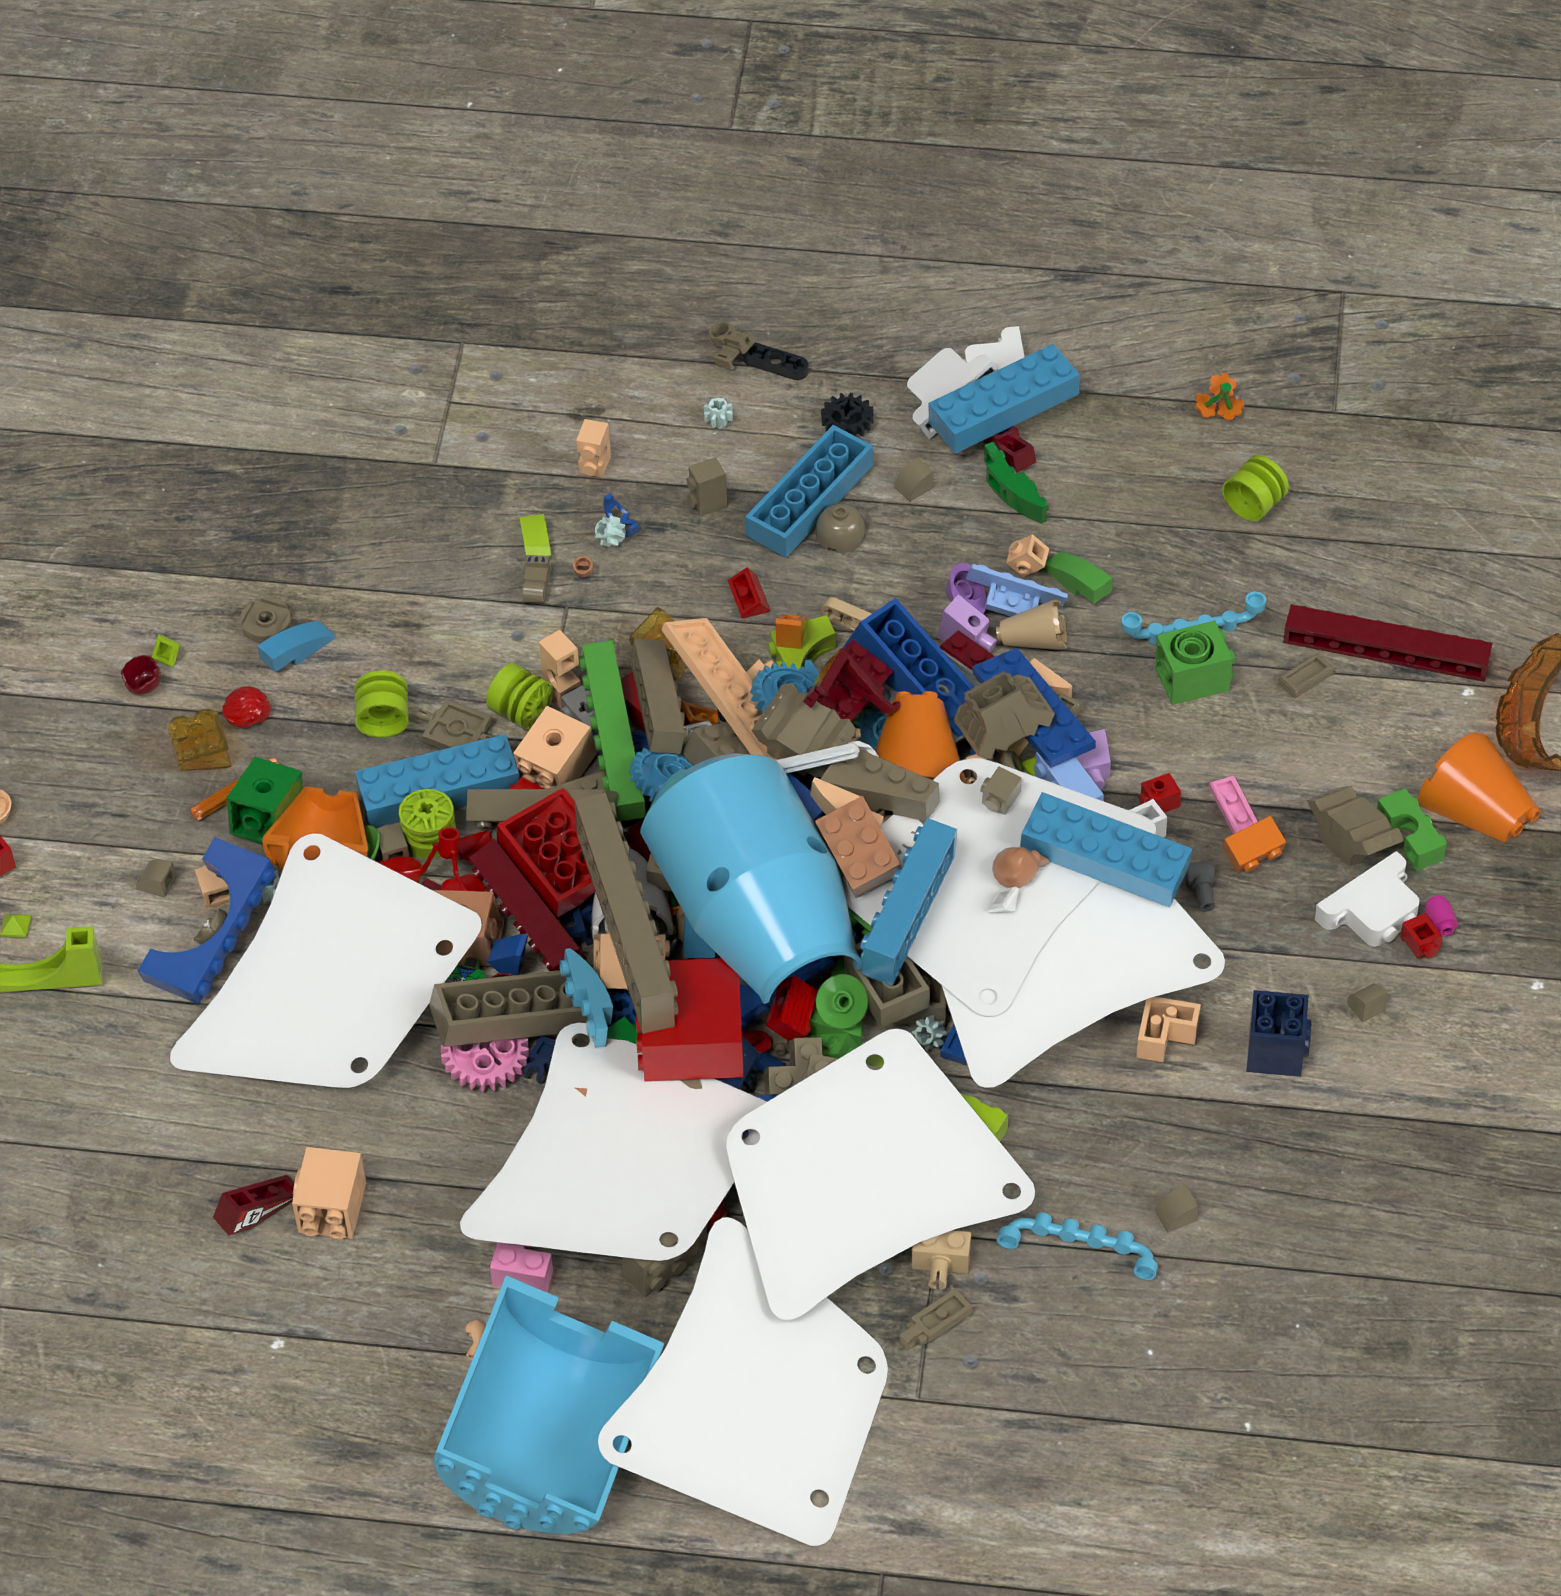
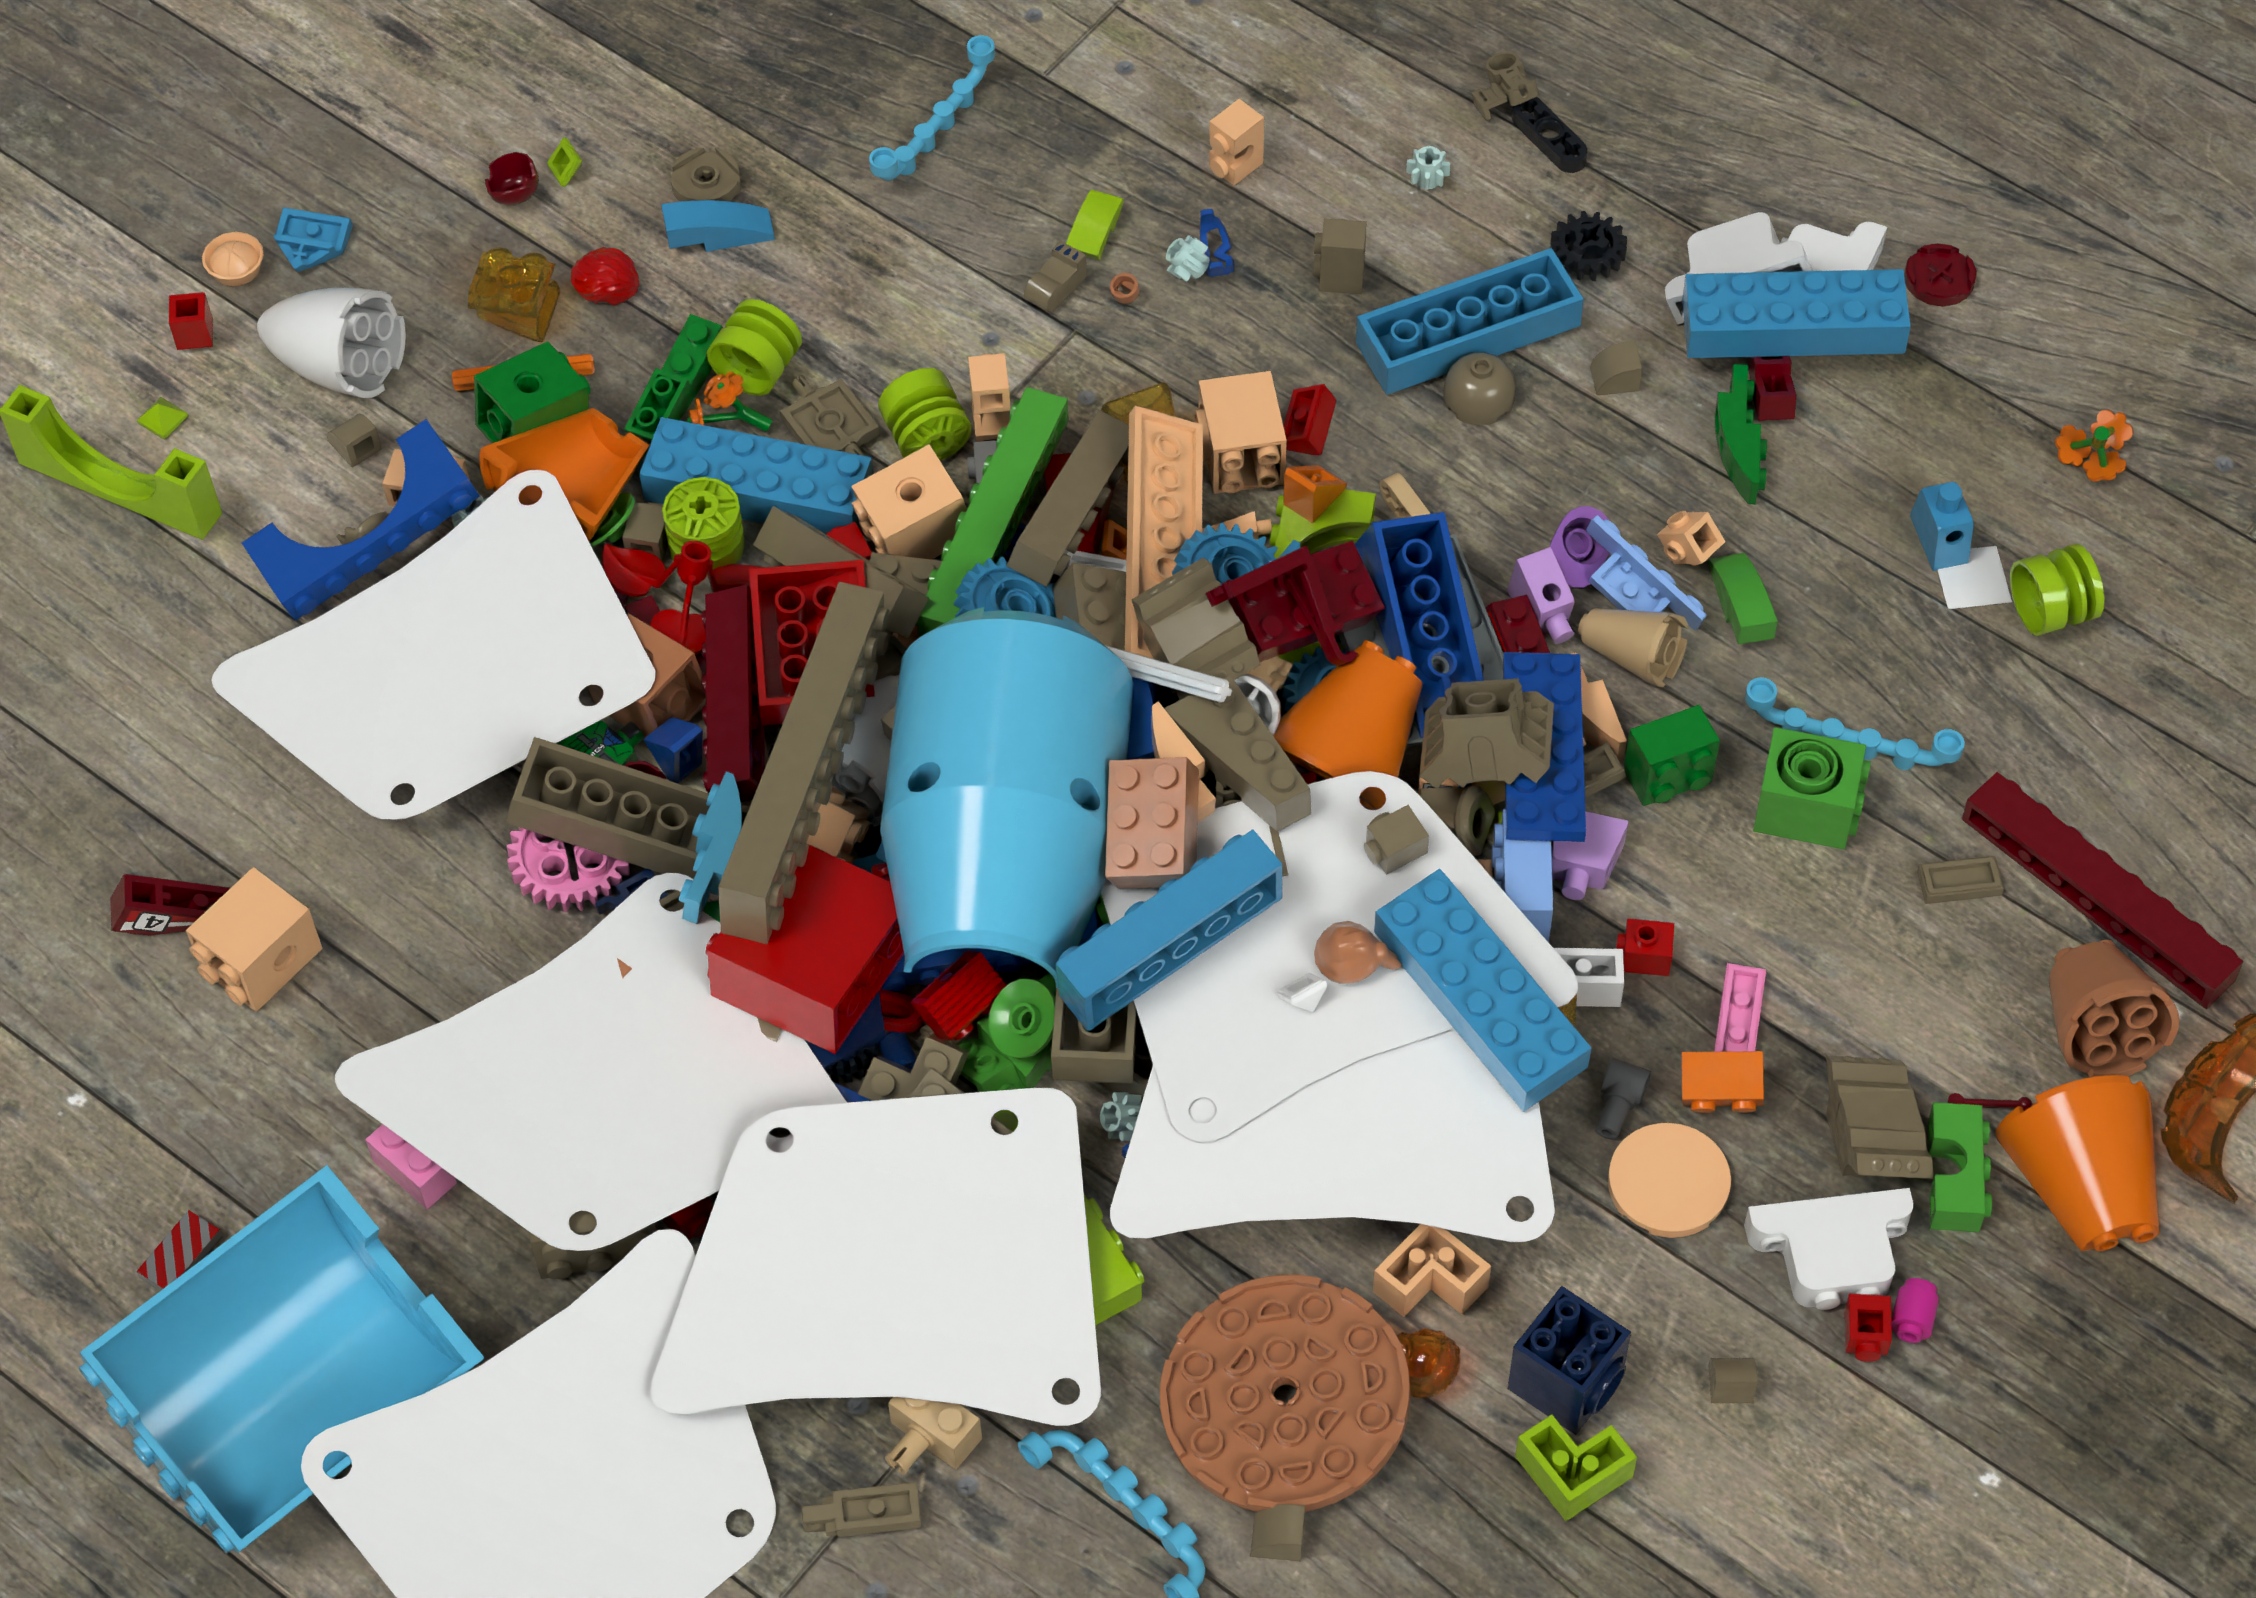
camera: 30 degrees right, 5 degrees up
(29, 772) = (311, 237): none -> dark azure slope
(99, 822) = (337, 335): none -> white cylinder
(341, 746) = (679, 380): none -> green slope
(382, 739) = (722, 392): none -> plant
(384, 554) = (890, 163): none -> medium azure bar
(414, 1394) = (179, 1250): none -> tile
(727, 609) = (1242, 432): none -> light nougat brick
(1067, 338) = (1940, 275): none -> dark red tile
(1104, 681) = (1671, 755): none -> green piece
(1122, 1171) = (1275, 1334): none -> nougat plate
(1166, 481) = (1940, 513): none -> dark azure torso
(1193, 1079) = (1431, 1361): none -> clear orange hair
(1197, 506) = (1977, 582): none -> white sticker
(1258, 915) = (1669, 1179): none -> light nougat tile
(1315, 1093) = (1570, 1473): none -> lime brick
(1420, 780) = (2023, 1102): none -> dark red hinge
(1439, 702) = (2108, 1010): none -> nougat cone

